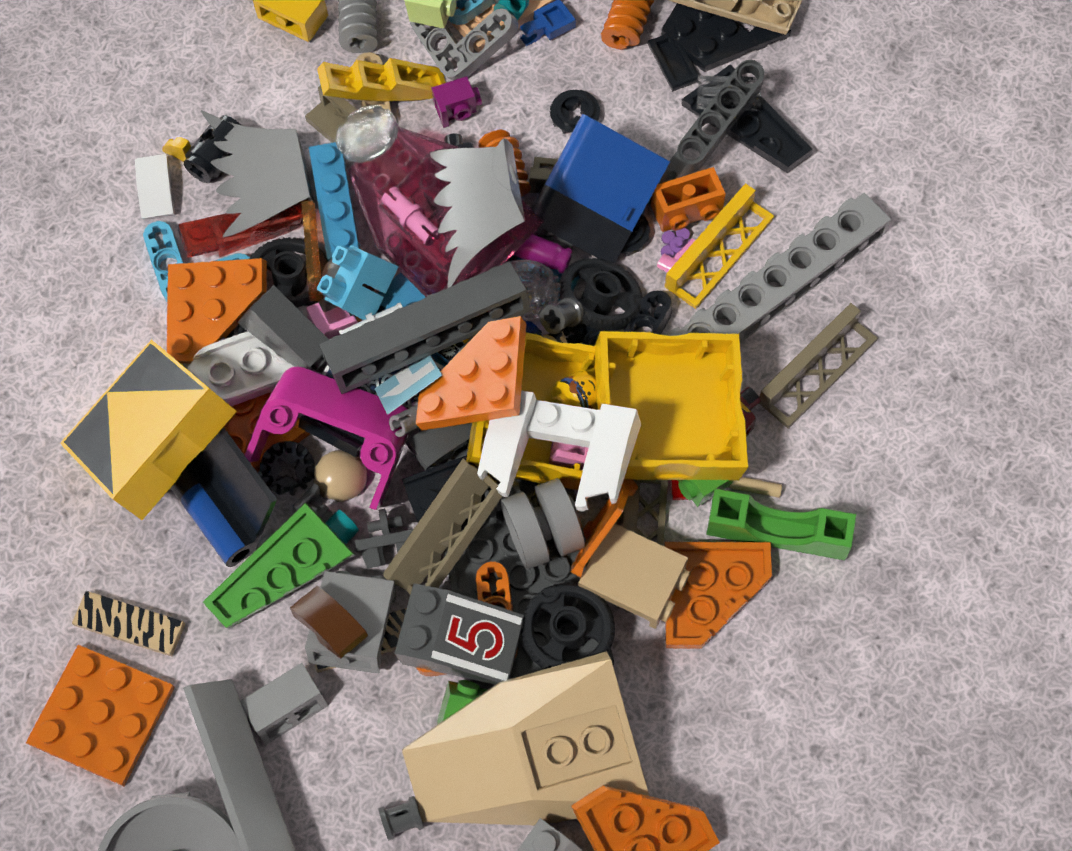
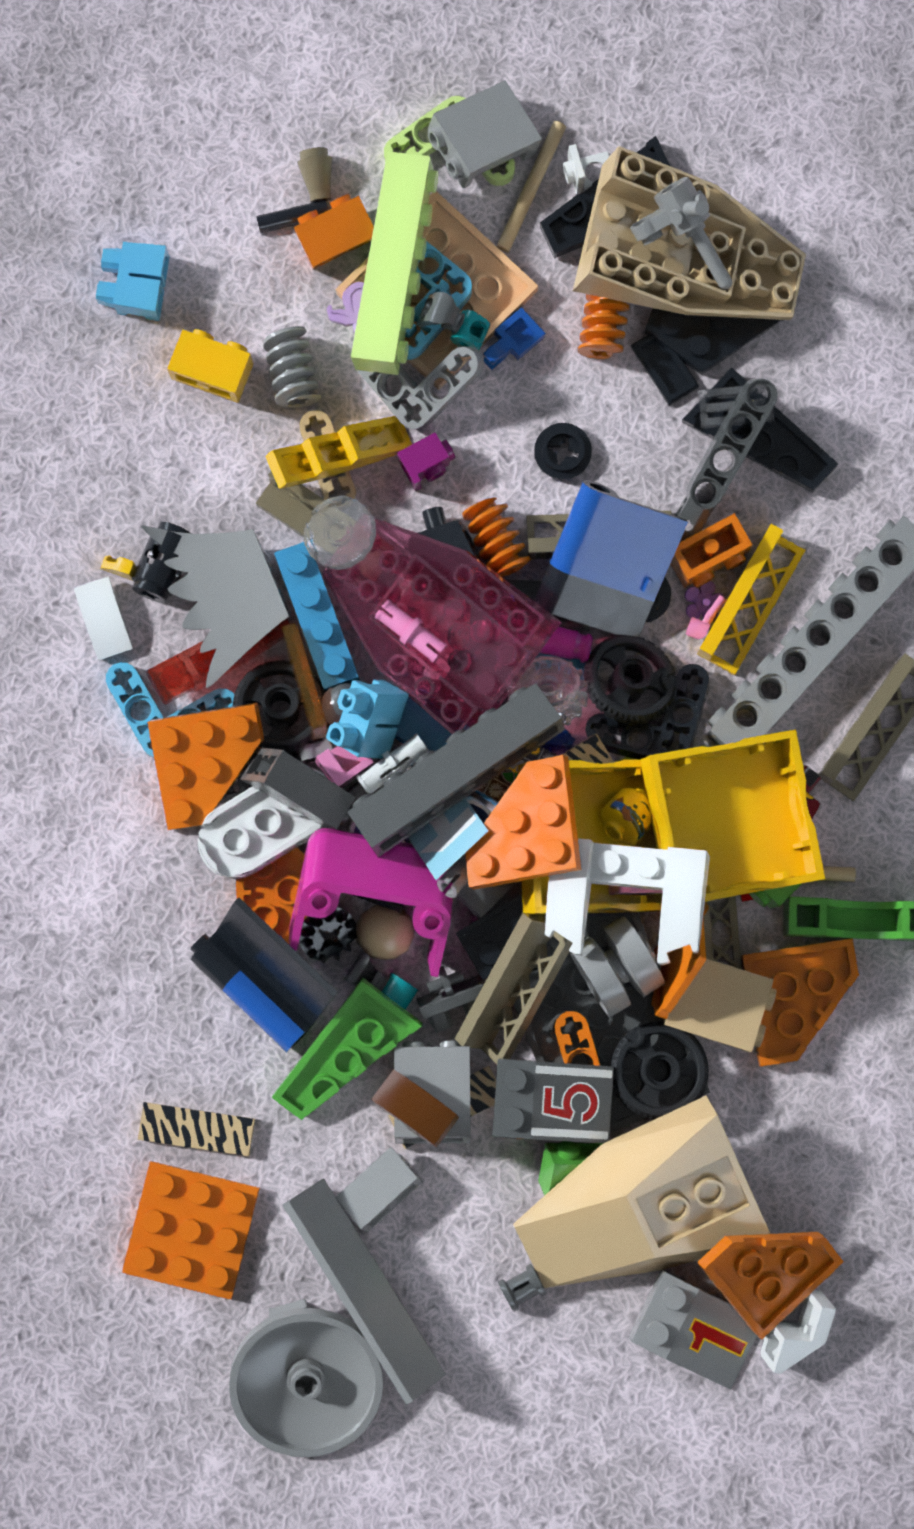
camera: 10 degrees left, 15 degrees up
(147, 429) = (176, 928): yellow tile -> none
(482, 199) = (493, 611): light grey piece -> none
(558, 316) = (600, 720): dark grey bush -> none

